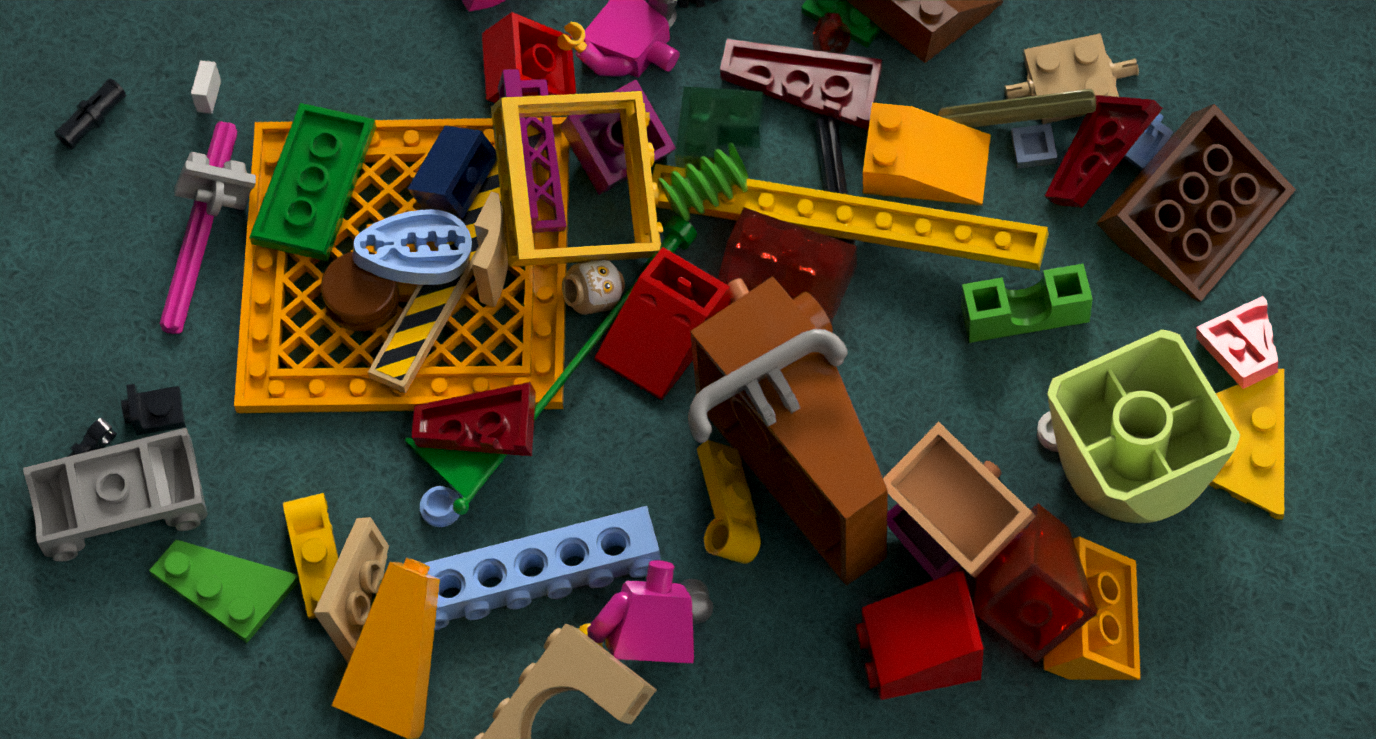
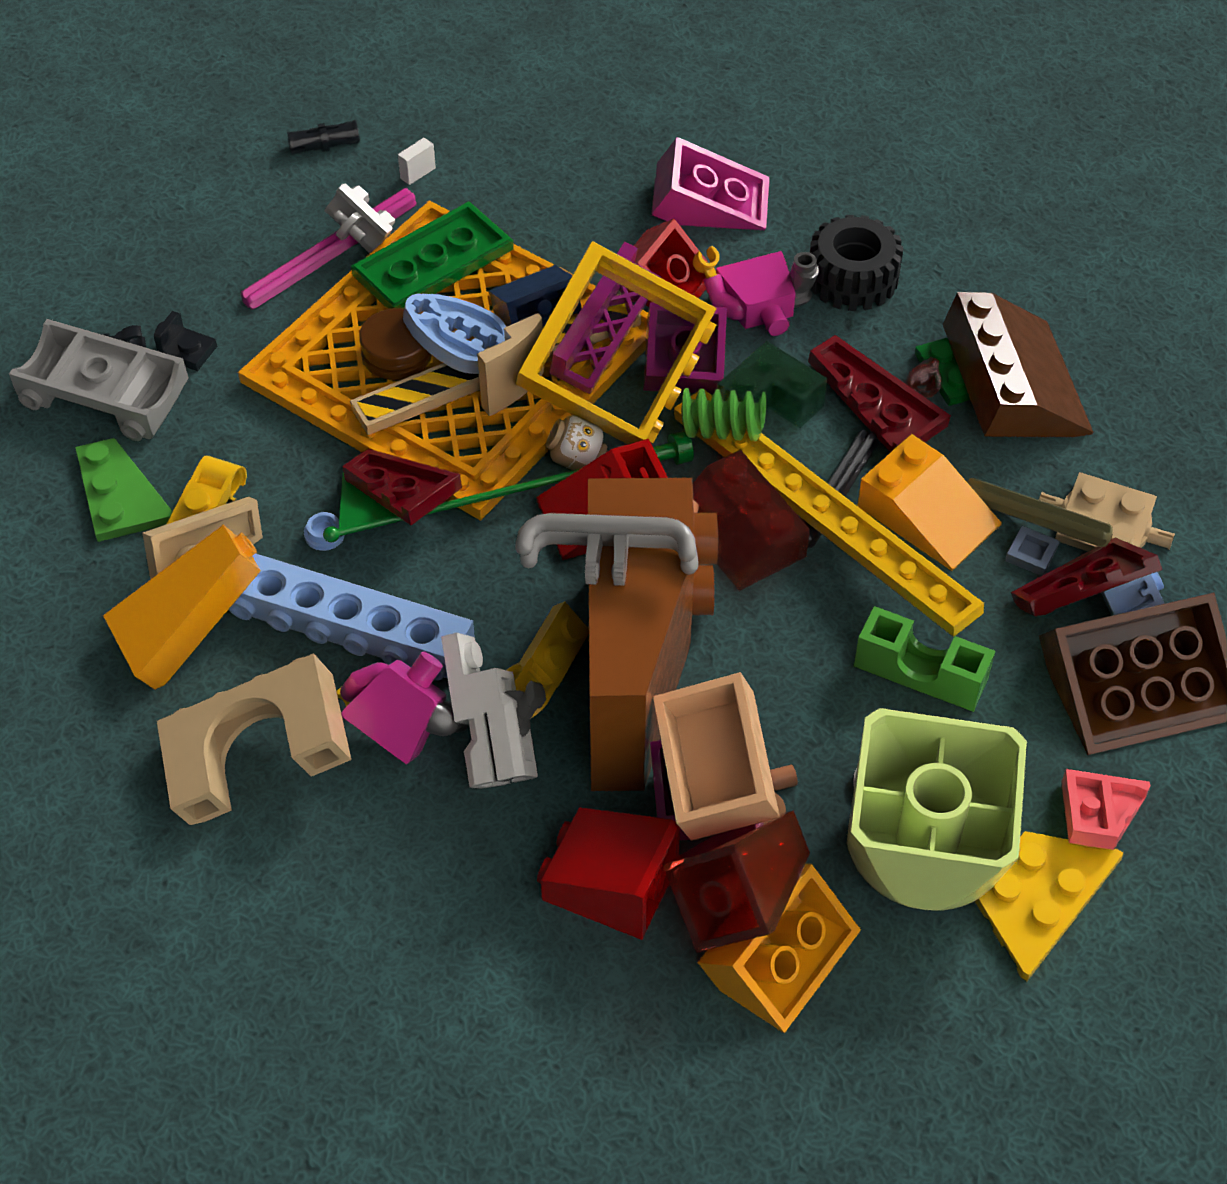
camera: 30 degrees right, 10 degrees down
(739, 575) = (495, 713): none -> white plate

